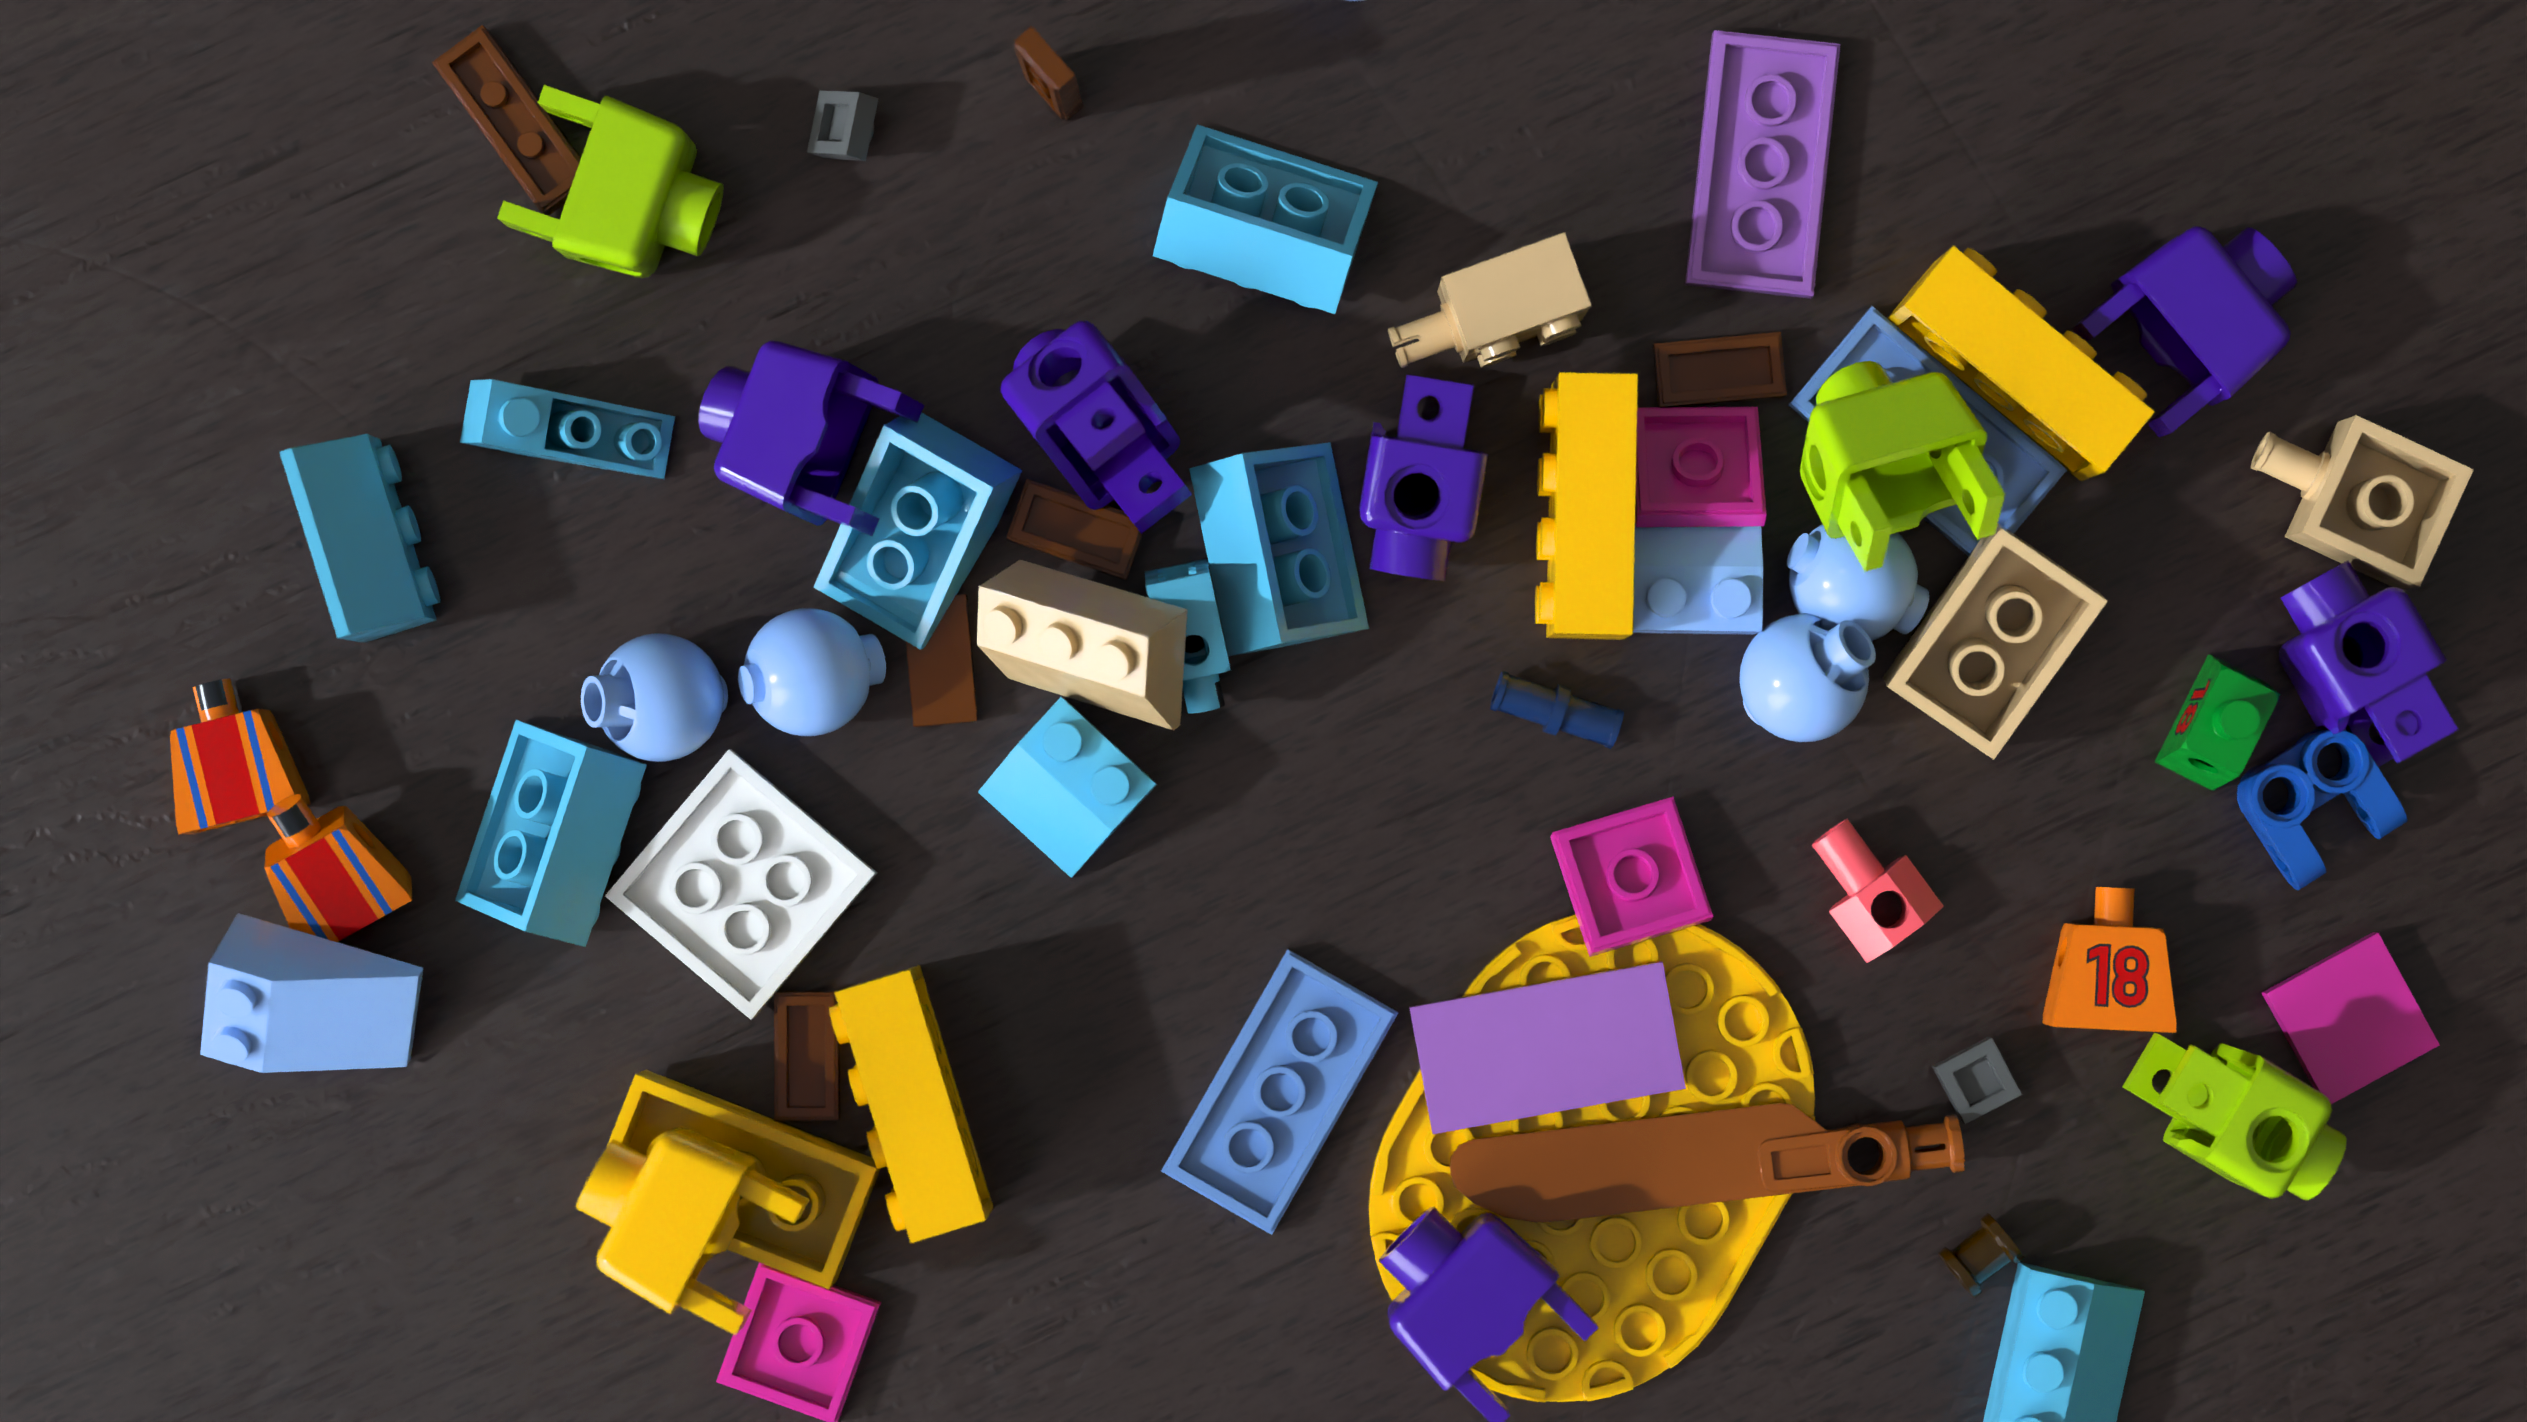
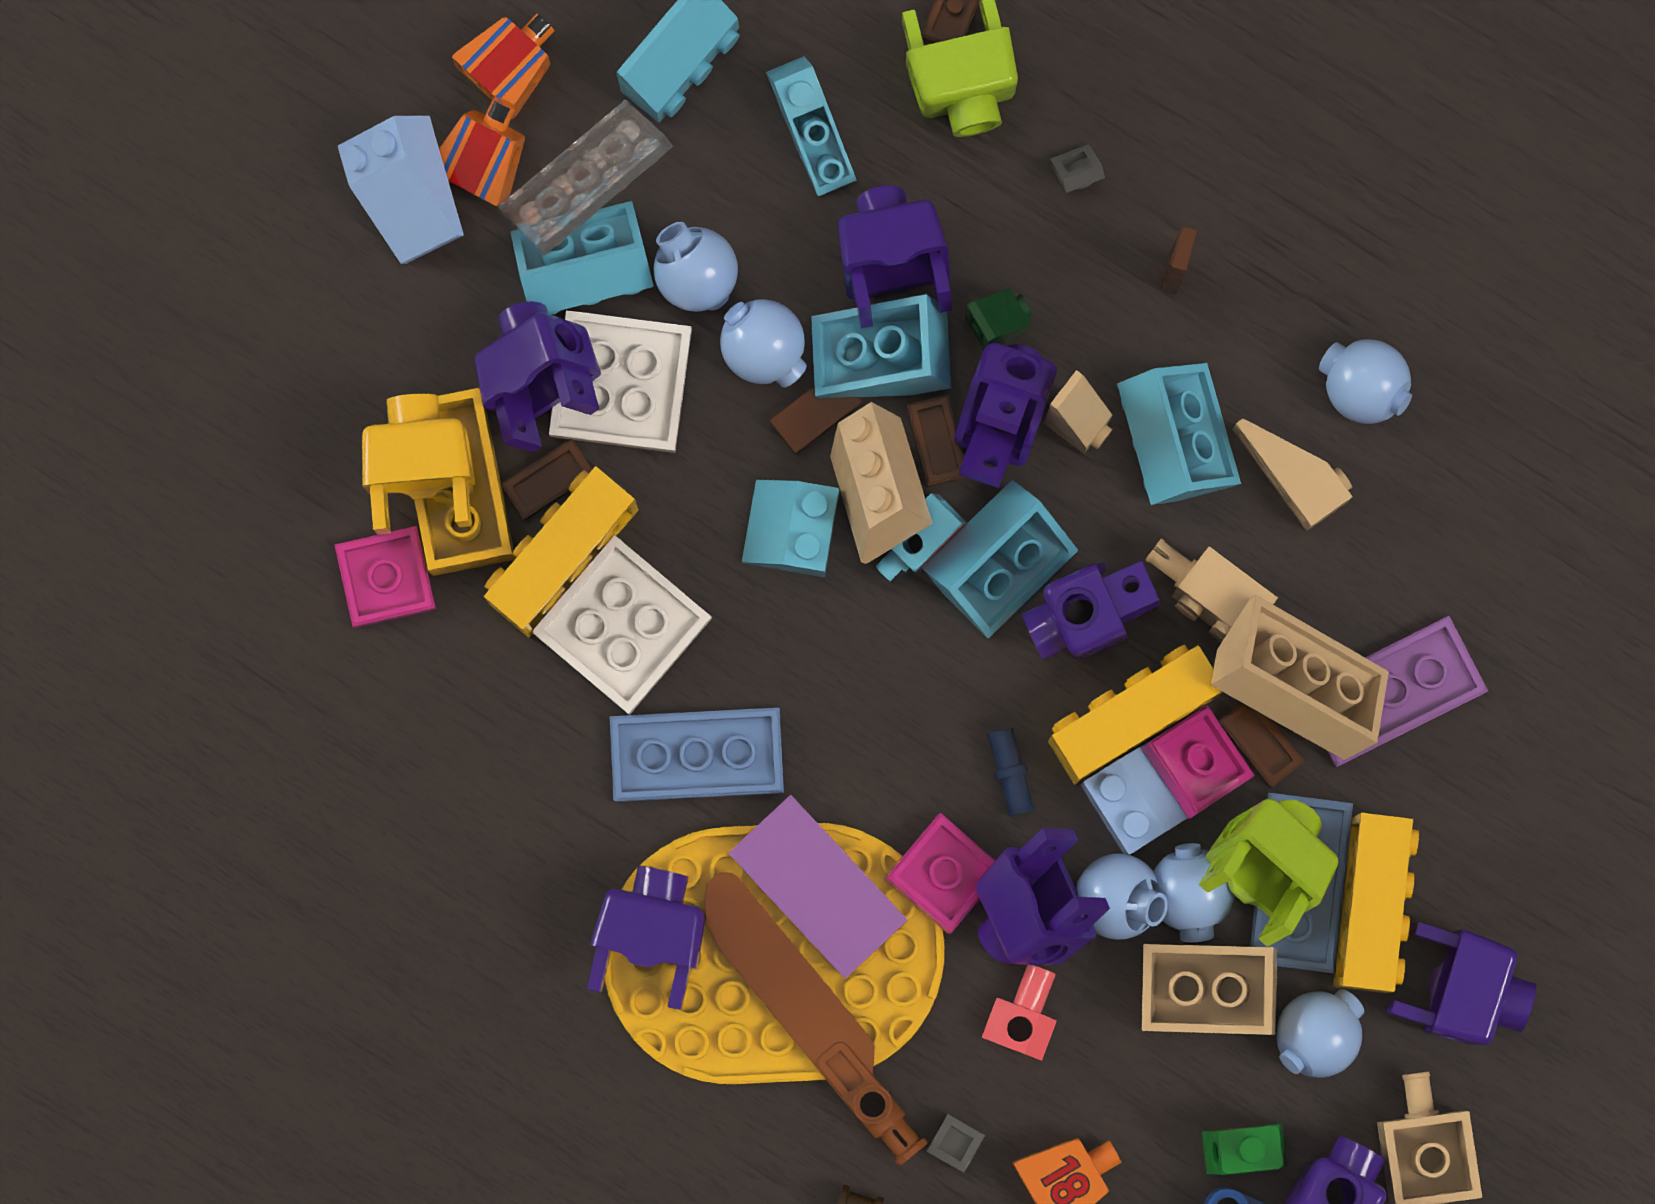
camera: 55 degrees right, 5 degrees down
(447, 761) = (585, 177): none -> clear plate
(656, 985) = (534, 369): none -> dark purple piece
(972, 352) = (998, 318): none -> dark green slope
(1054, 1082) = (622, 625): none -> white plate
(1165, 329) = (1079, 414): none -> tan slope
(1425, 102) = (1299, 477): none -> tan slope
(1685, 269) = (1301, 679): none -> tan slope
(1750, 790) = (1035, 903): none -> dark purple piece
(2134, 536) = (1320, 1033): none -> light blue brick

